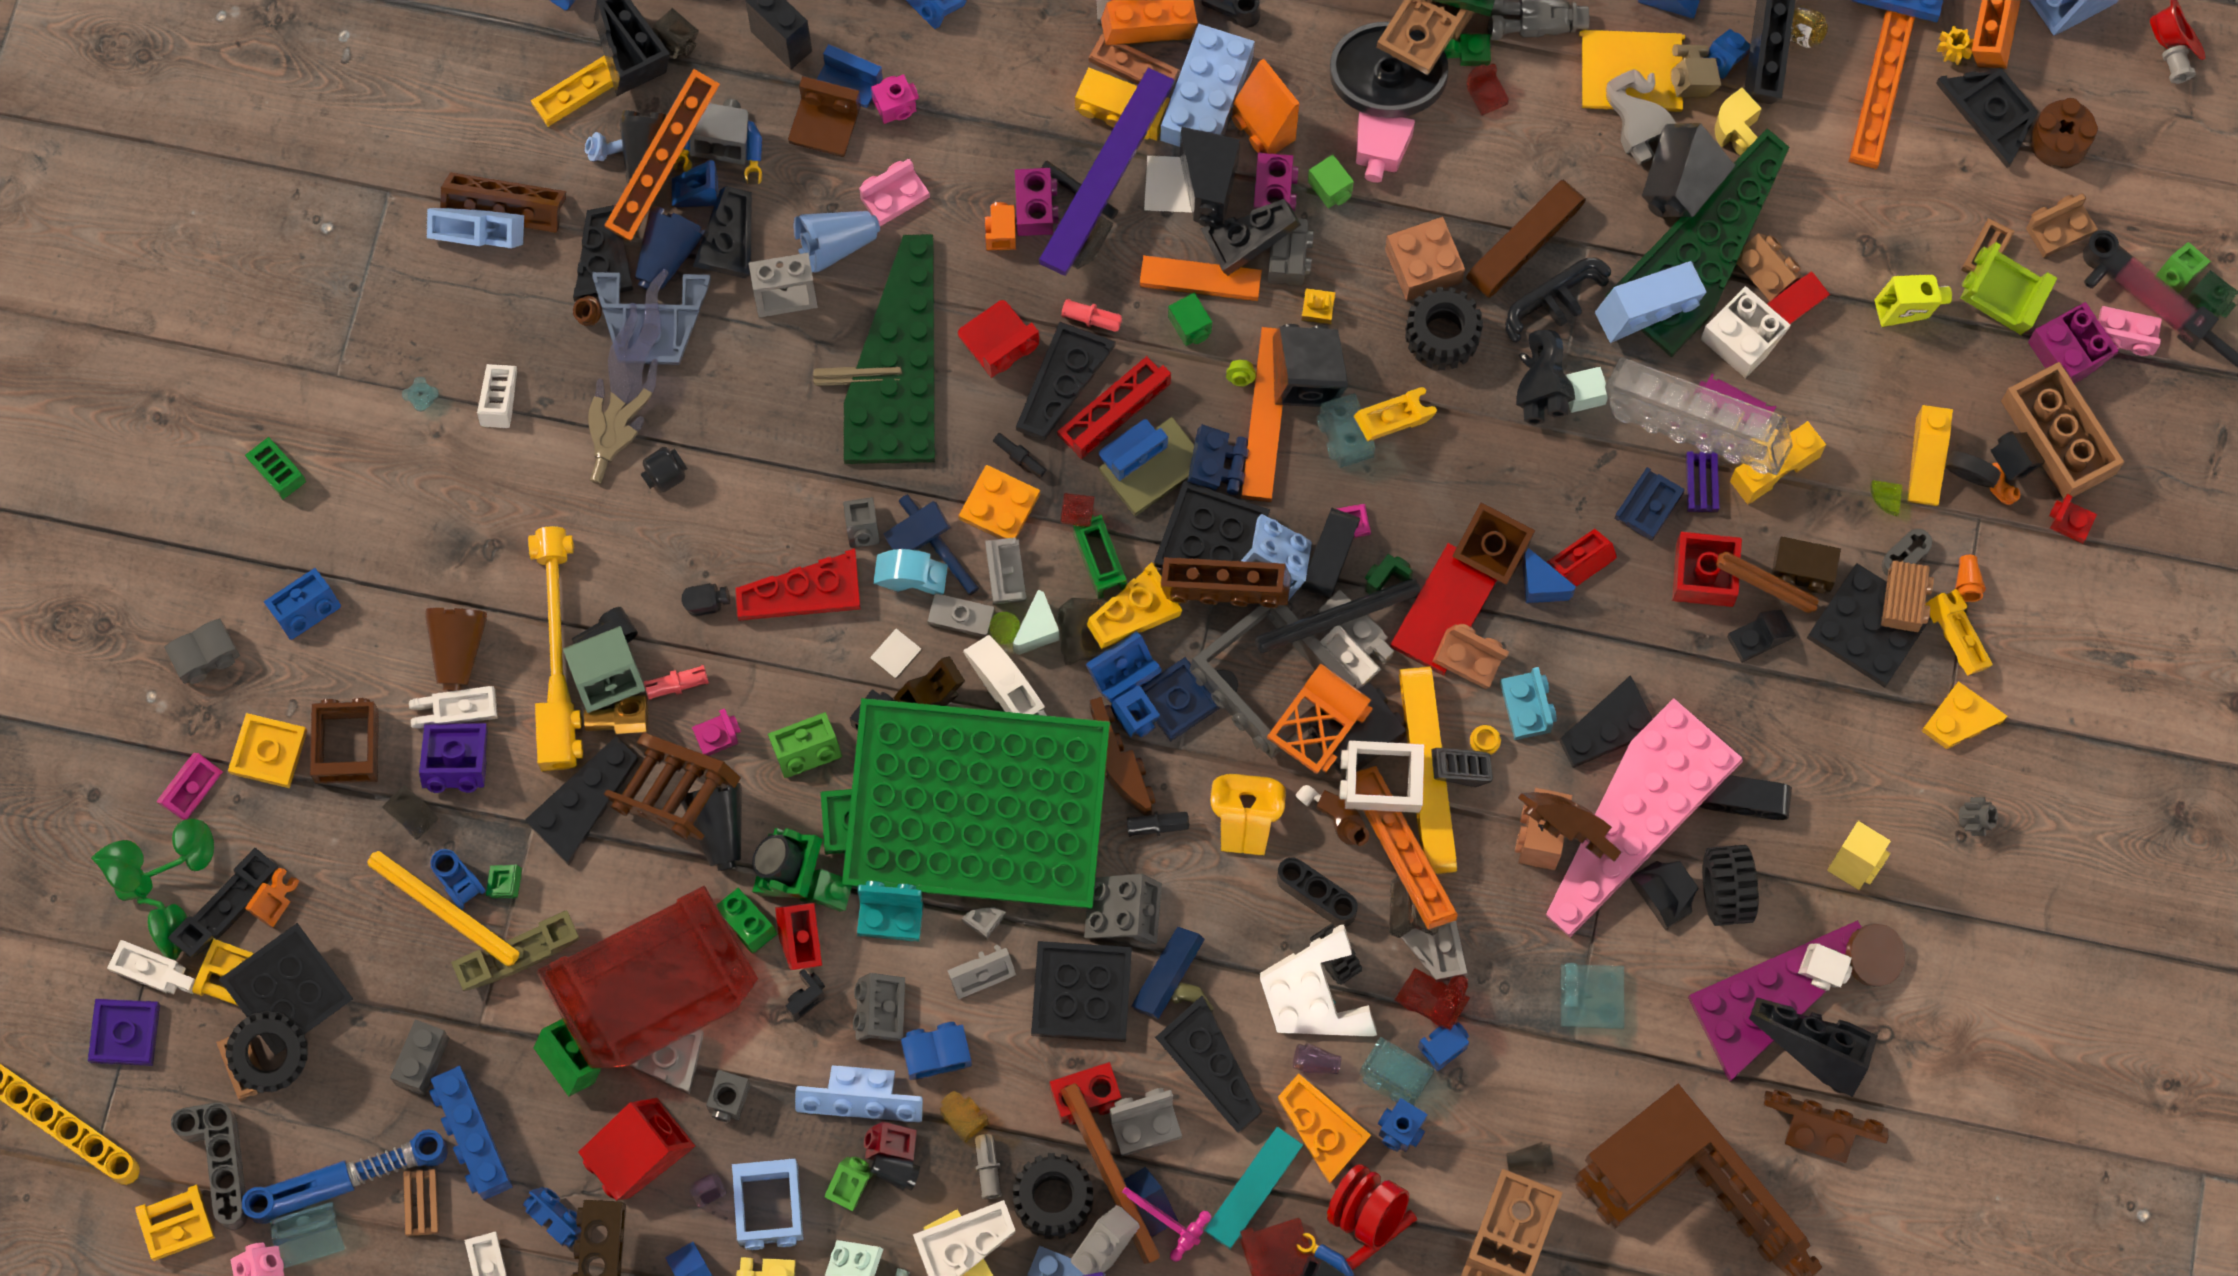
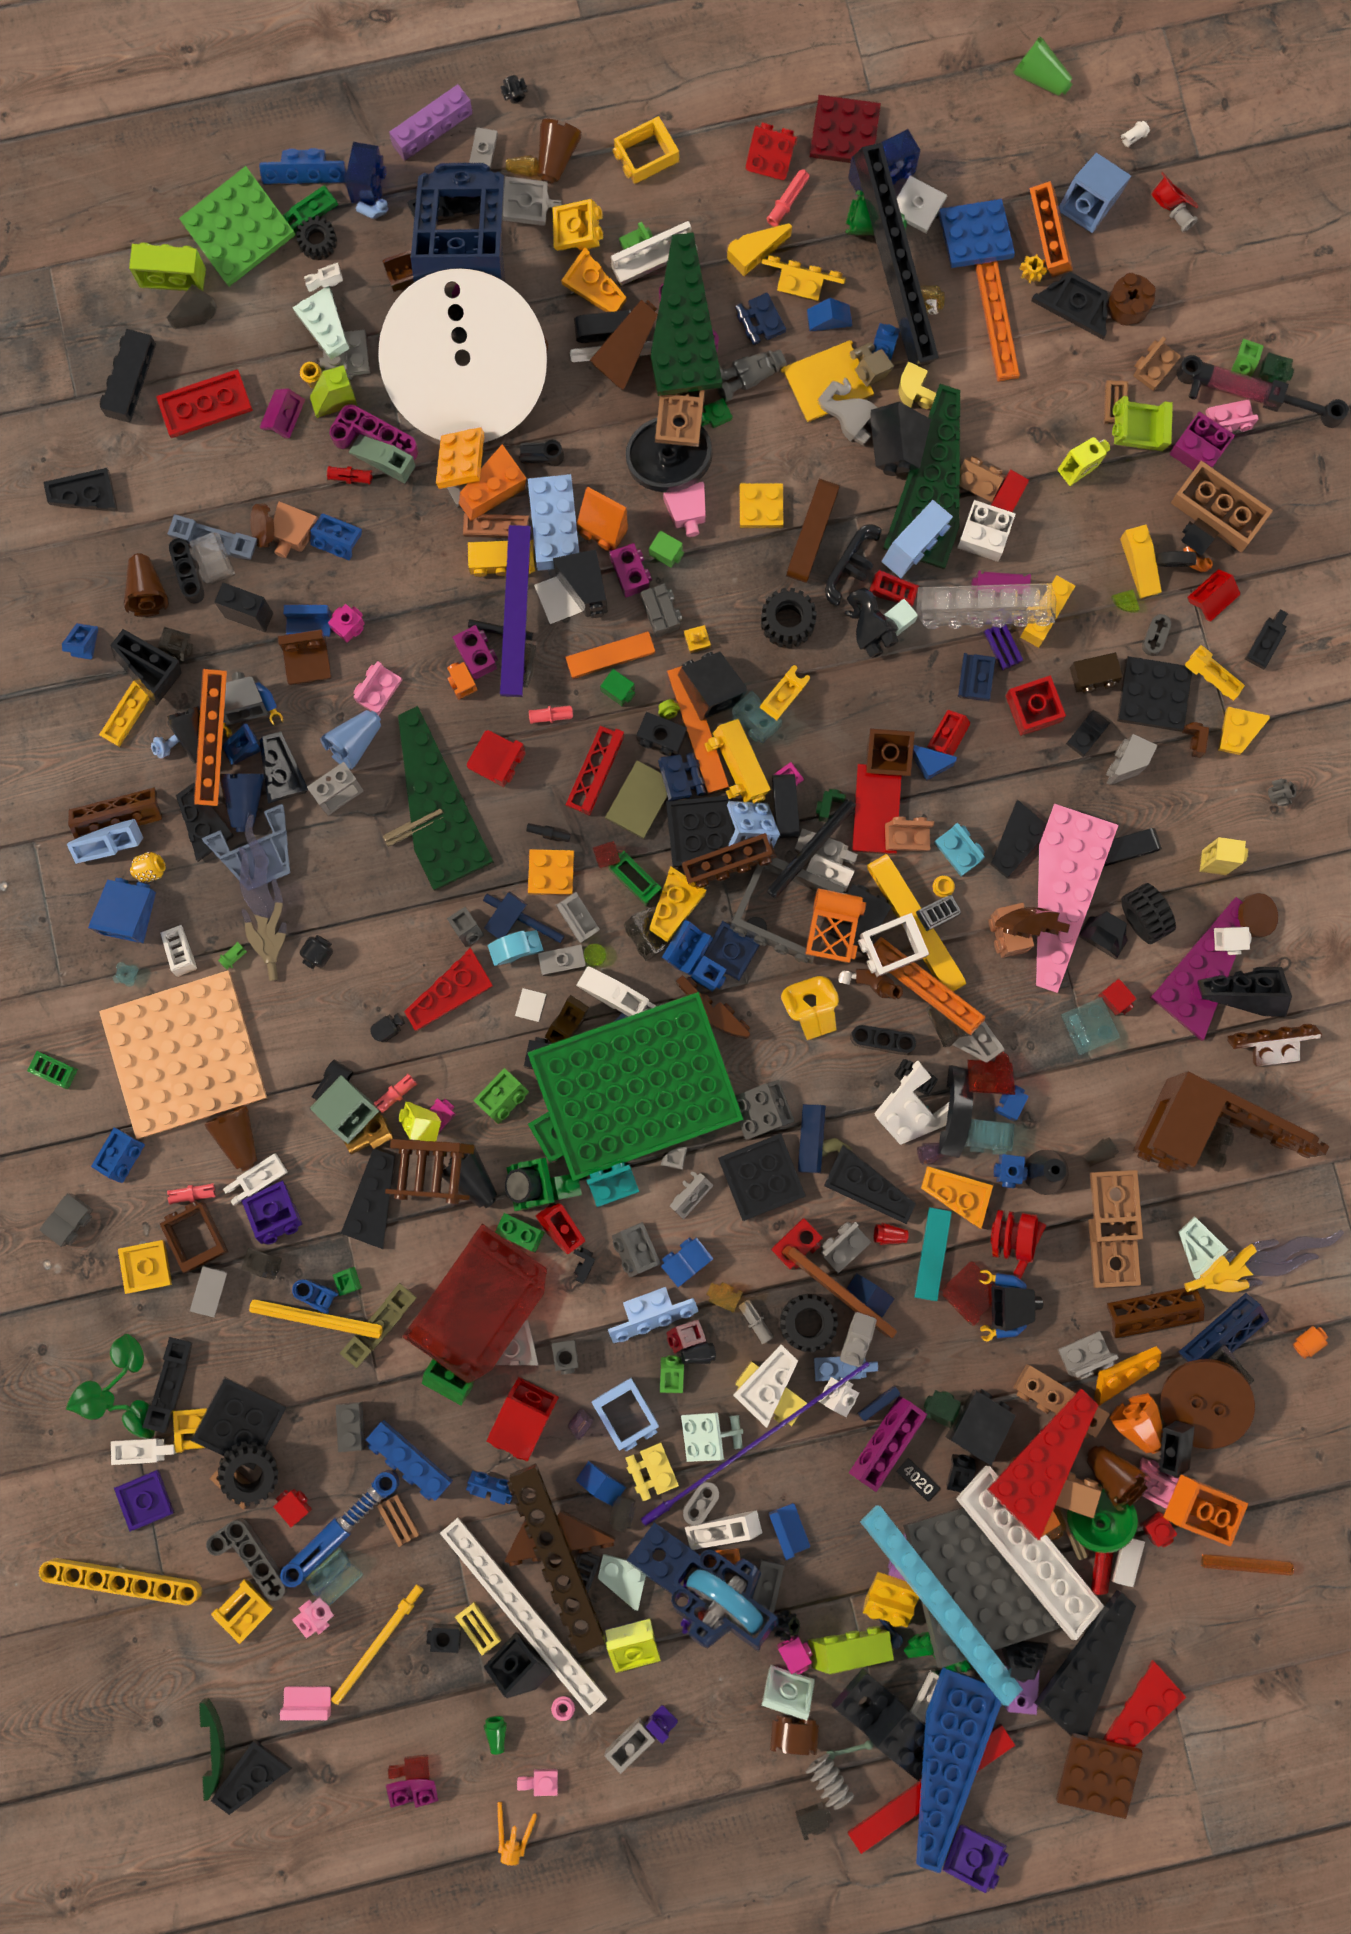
camera: 25 degrees left, 10 degrees up
(189, 786) = (104, 1314): dark pink slope -> none
(269, 900) = (198, 1369): orange plate -> none
(300, 1122) = (292, 1506): none -> red brick
(328, 814) = (208, 1291): none -> light grey hinge
(367, 689) = (191, 1193): none -> coral pin
(441, 520) = (183, 1054): none -> light nougat plate
(455, 317) = (123, 910): none -> blue slope
(510, 280) = (147, 867): none -> yellow head
(555, 719) = (328, 1156): yellow bar -> none
(559, 429) = (232, 956): none -> bright green pin
(582, 308) = (205, 865): reddish brown plate -> none
(688, 726) = (419, 1122): none -> neon yellow slope
(1037, 628) = (617, 945): light aqua slope -> none
(1064, 373) = (551, 762): black wing -> none
(1133, 449) = (622, 794): blue panel -> none
(1158, 823) = (758, 1041): black axle -> none
(1189, 1235) = (906, 1306): dark pink piece -> none
(1210, 1137) = (888, 1234): none -> red cone
(1213, 383) = (652, 725): none -> black brick
(1248, 236) = (630, 613): black wing -> none
(1300, 474) = (741, 762): none -> yellow brick
(1368, 1024) = (959, 1113): none -> black slope
(1424, 258) = (753, 575): nougat brick -> none
(1449, 1153) = (1039, 1172): none -> black cone
(1476, 182) = (761, 505): none -> yellow plate
(1486, 89) = (738, 437): clear red bracket -> none
(1594, 337) = (895, 581): none -> red slope
(1644, 975) = (1118, 997): none -> red brick
(1680, 1215) = (1214, 1152): none -> clear smoke bracket
(1767, 582) = (1079, 697): dark orange axle -> none
(1798, 689) = (1132, 759): none -> light grey slope
(1903, 698) = (1199, 742): none -> reddish brown bracket
(1906, 596) = (1173, 666): medium nougat brick -> none
(1969, 579) = (1205, 634): orange cone -> none
(2006, 537) = (1215, 594): none -> red panel
(2047, 622) = (1267, 640): none -> black hinge
(2071, 519) = (1251, 563): red bracket -> none

